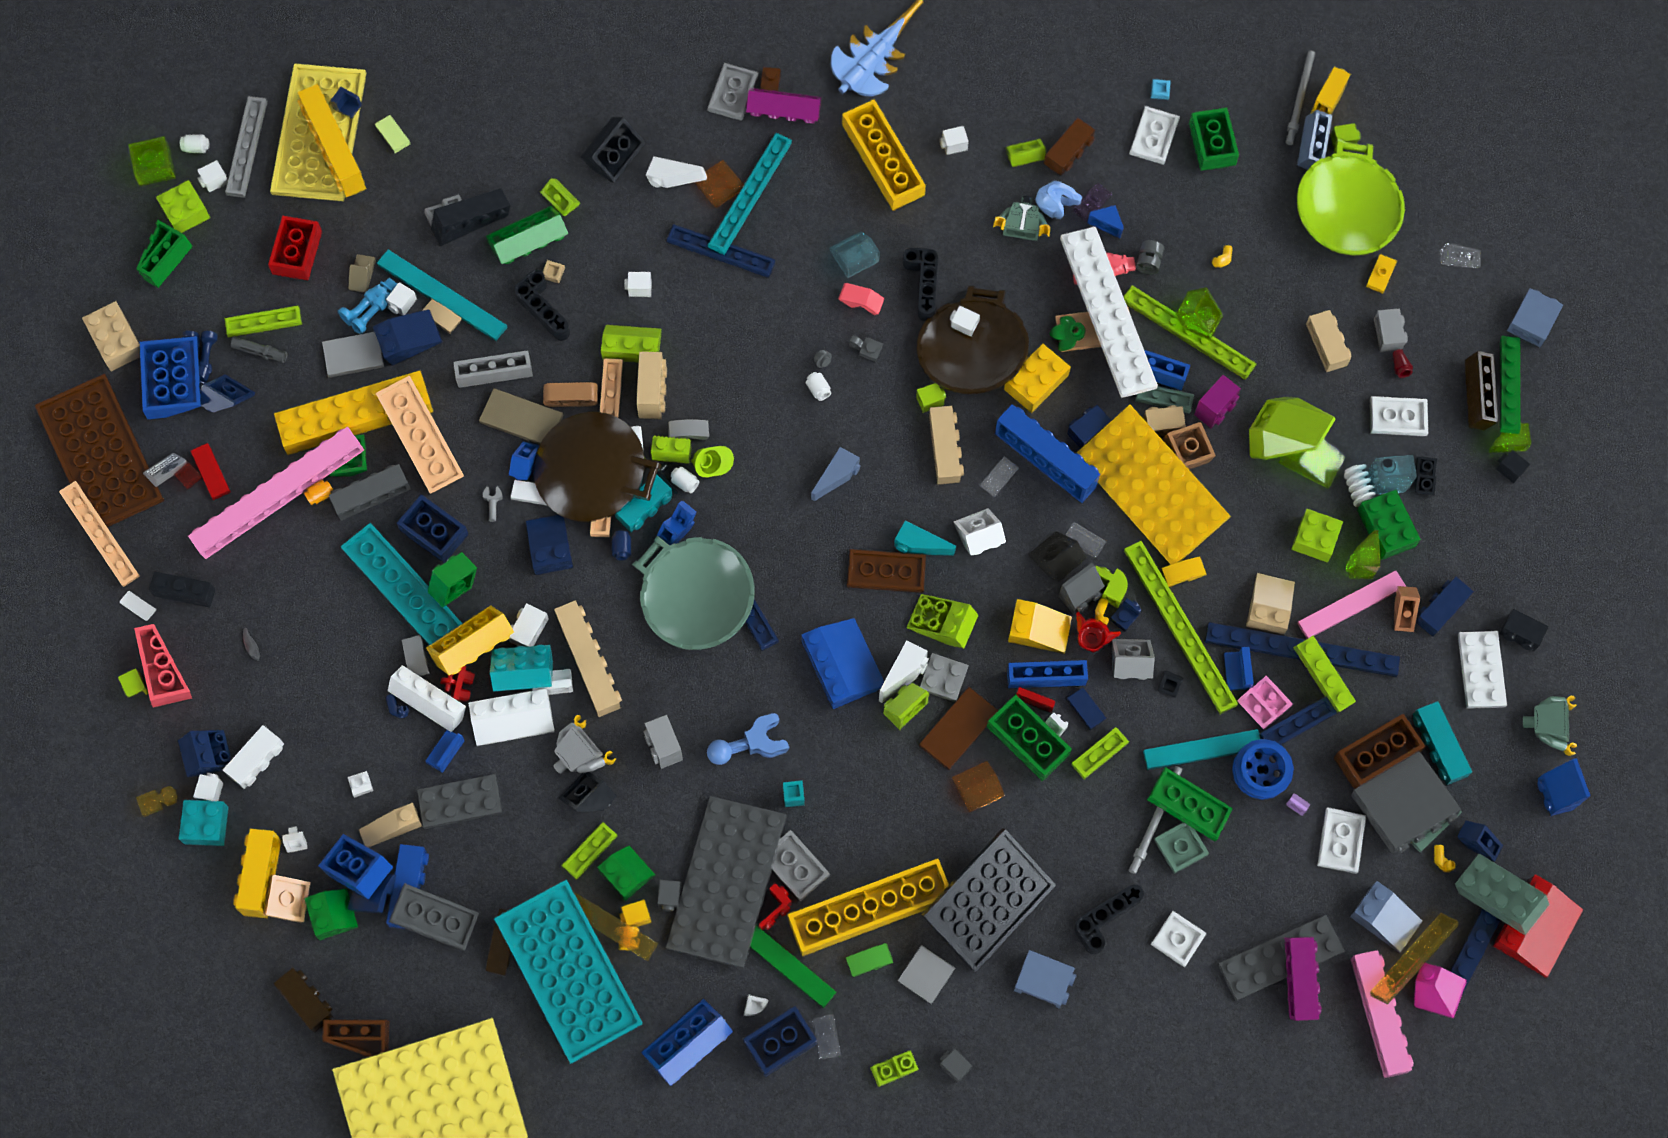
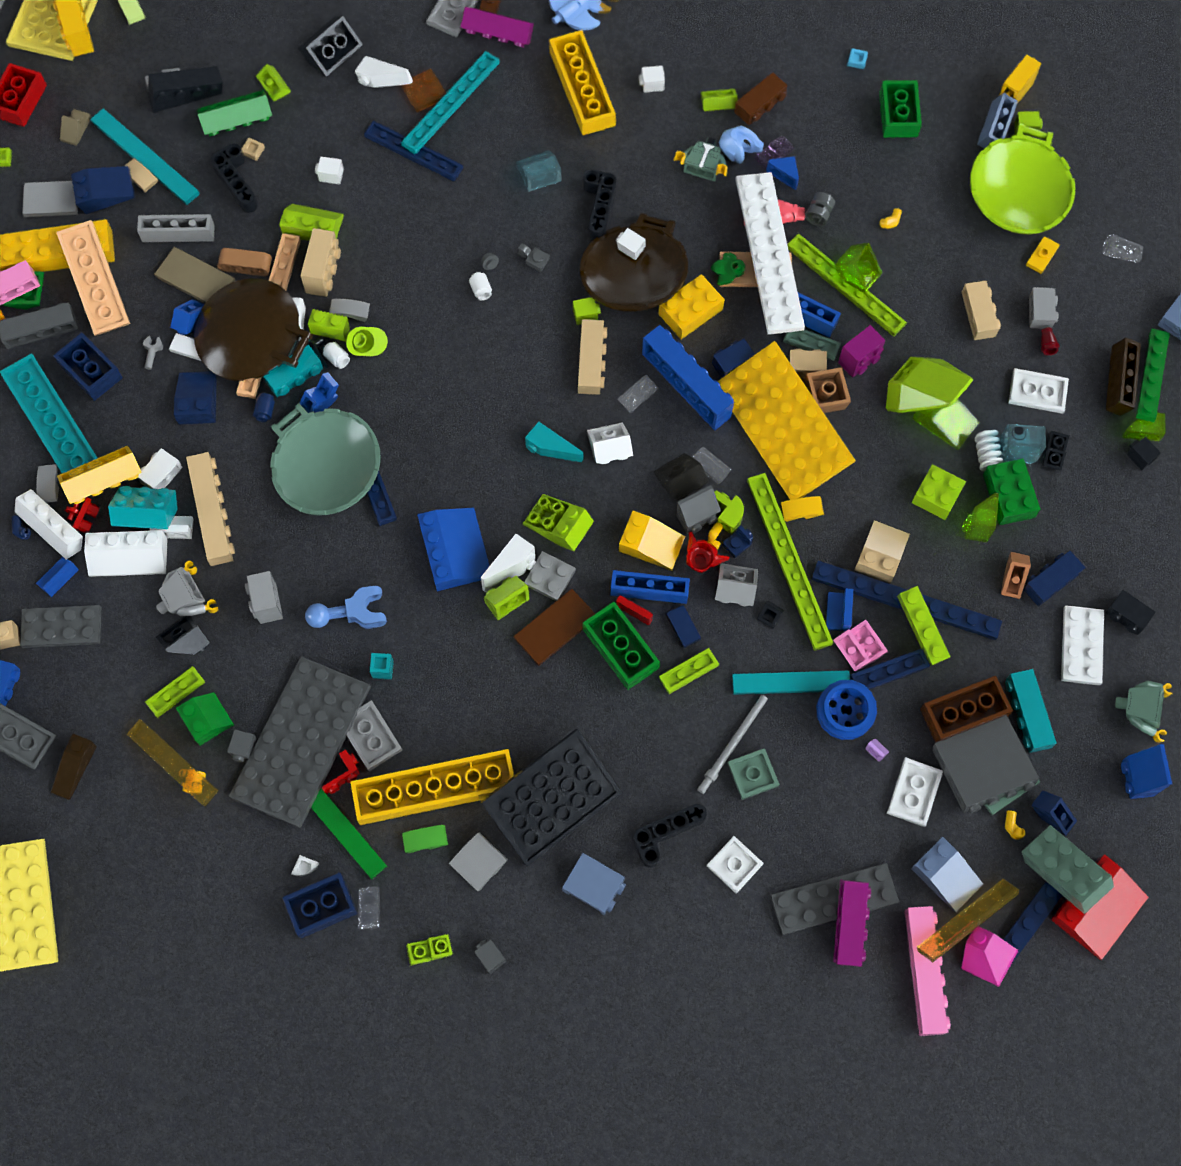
camera: 10 degrees right, 0 degrees up
(376, 298) = (82, 150): dark azure piece -> none
(401, 299) = (105, 154): white brick -> none
(452, 579) = (94, 415): green brick -> none
(568, 971) = (126, 805): teal plate -> none
(635, 914) = (205, 759): yellow brick -> none
(687, 1042) = (230, 892): blue slope -> none
(837, 473) = (483, 368): sand blue slope -> none
(860, 296) = (535, 208): coral slope -> none
(886, 570) = (513, 467): reddish brown tile -> none
(978, 786) = (564, 686): clear orange slope -> none
(1056, 724) = (650, 637): white tile -> none
(1154, 135) = (844, 99): white tile -> none
(1190, 804) = (768, 733): green tile -> none
(1293, 126) = (980, 106): light grey bar -> none
(1350, 605) = (961, 563): bright pink tile -> none

